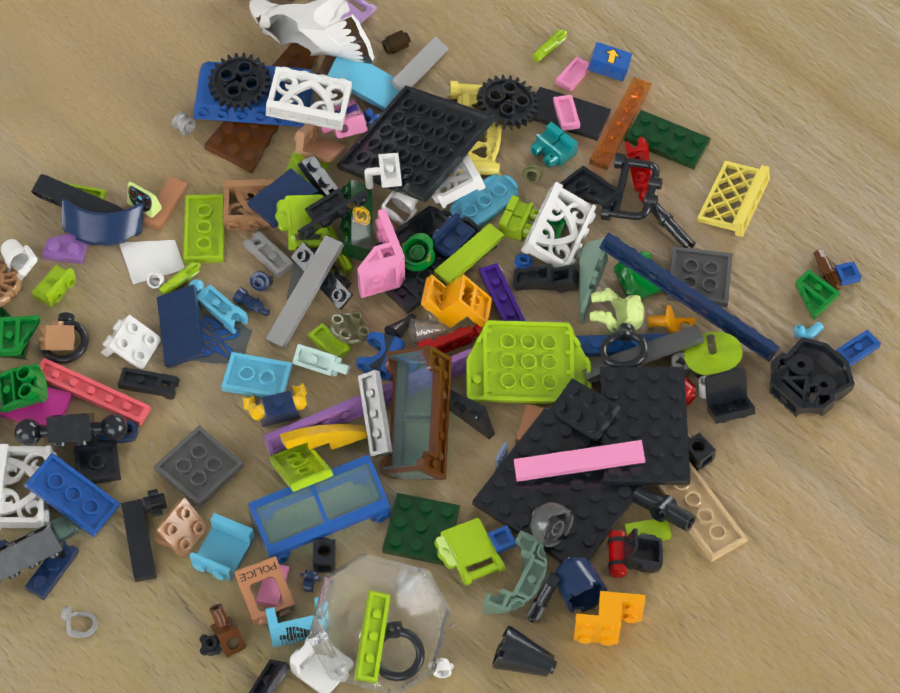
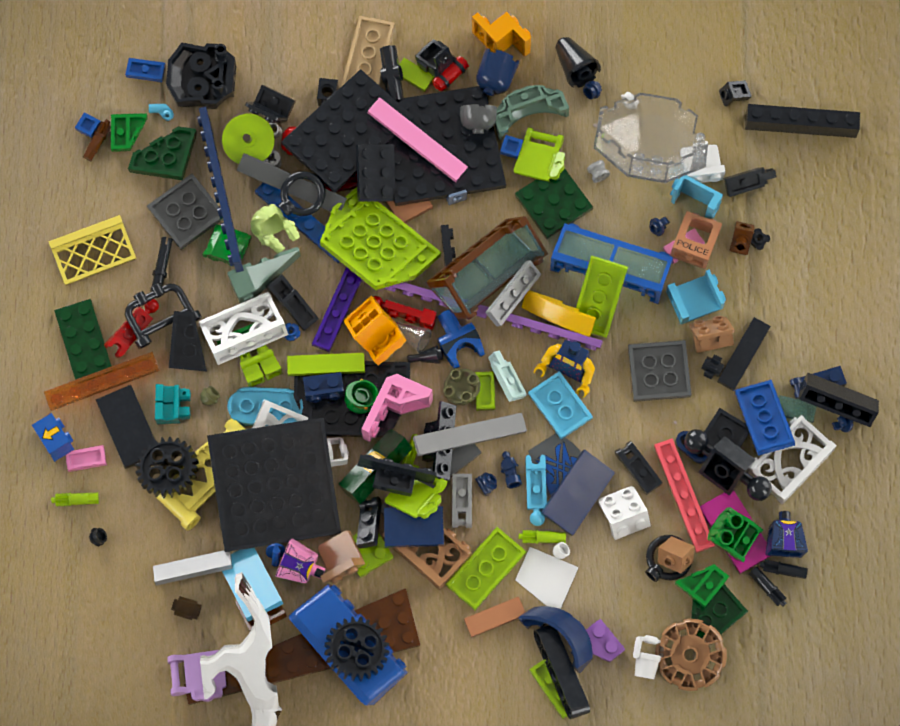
camera: 135 degrees left, 15 degrees up
(54, 285) = (637, 613): lime bracket -> none
(66, 616) = (824, 337): light grey piece -> none
(139, 195) = (512, 628): slope -> none
(183, 123) = (418, 677): light grey wheel -> none
(303, 81) = (319, 559): white fence -> none
(327, 563) = (637, 226): black brick -> none
(372, 637) = (663, 140): lime tile -> none
(388, 169) = (322, 468): white plate -> none
(396, 630) = (640, 140): black piece -> none
(482, 649) = (592, 89): none -> dark blue plate
(503, 35) = (98, 536): none -> black plate
(543, 597) = (522, 82): black piece -> none
(566, 112) = (132, 423): bright pink tile -> none
(669, 321) = (244, 195): light orange bracket -> none
(763, 300) = (166, 155): none -> dark green plate

